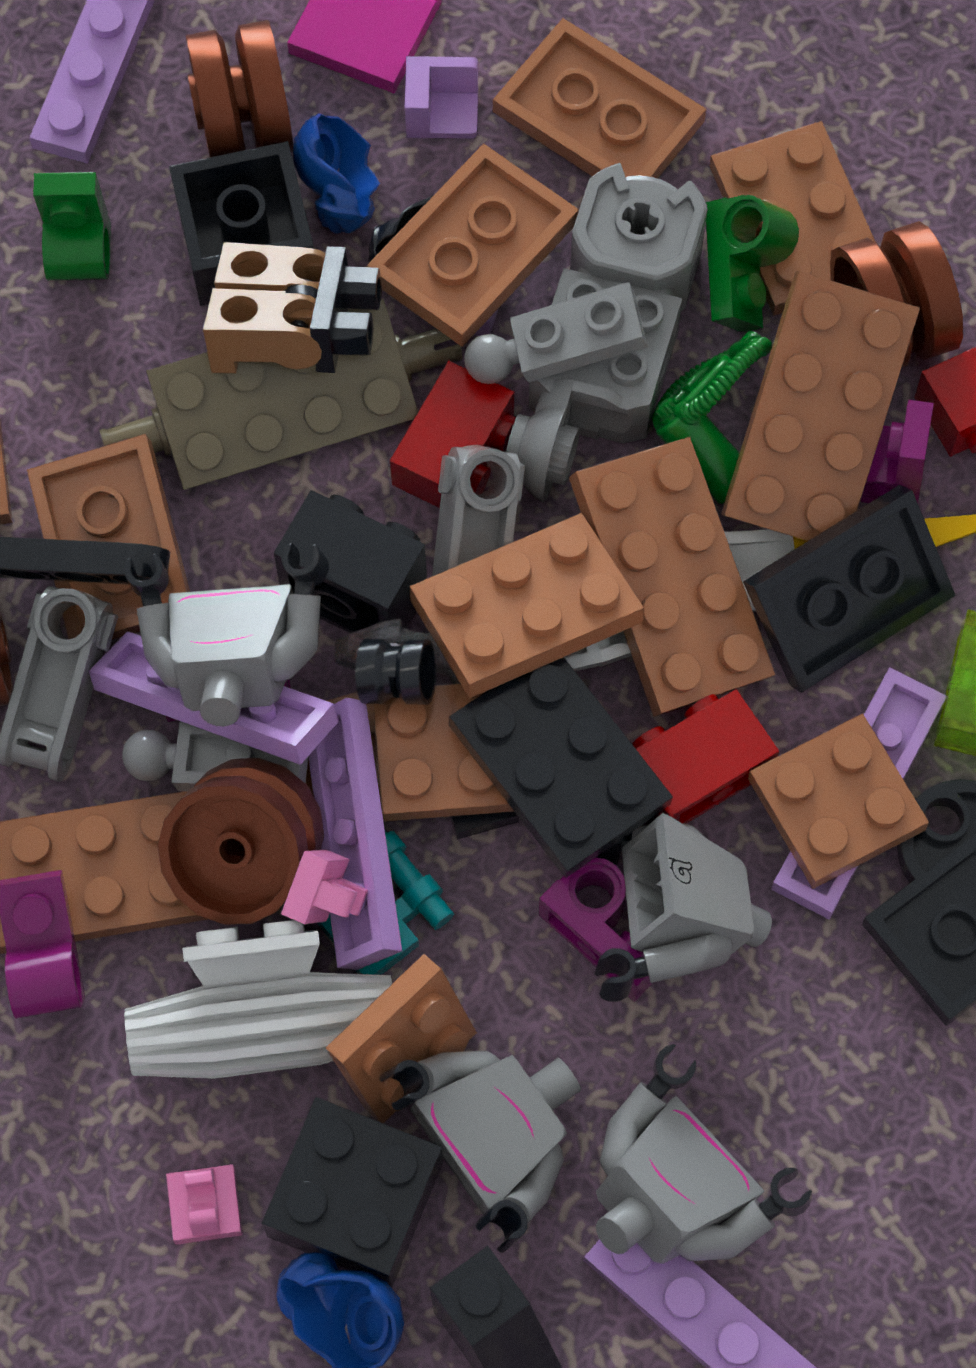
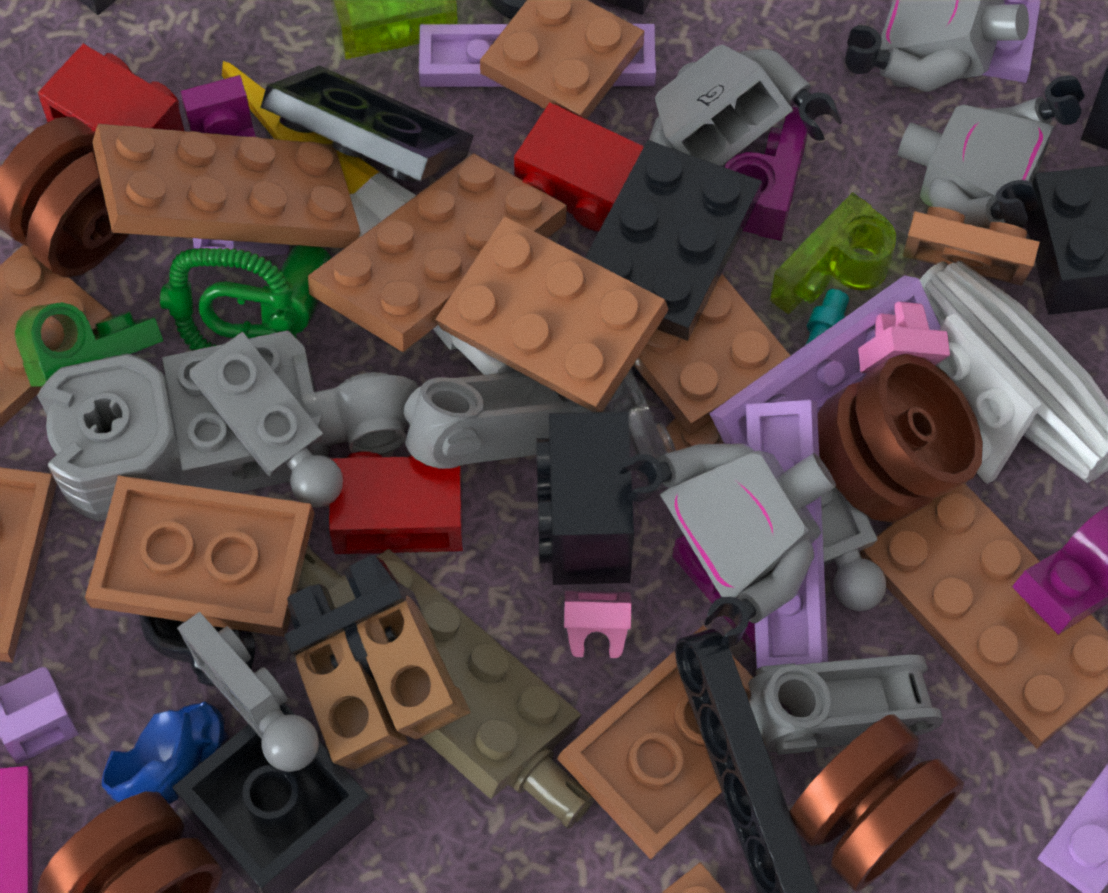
camera: 120 degrees left, 5 degrees down
(254, 542) = (597, 612): none -> bright pink tile
(319, 209) = (287, 740): none -> light grey plate
(395, 671) = (678, 394): black wheel -> none
(488, 935) = (831, 254): none -> clear neon green plate

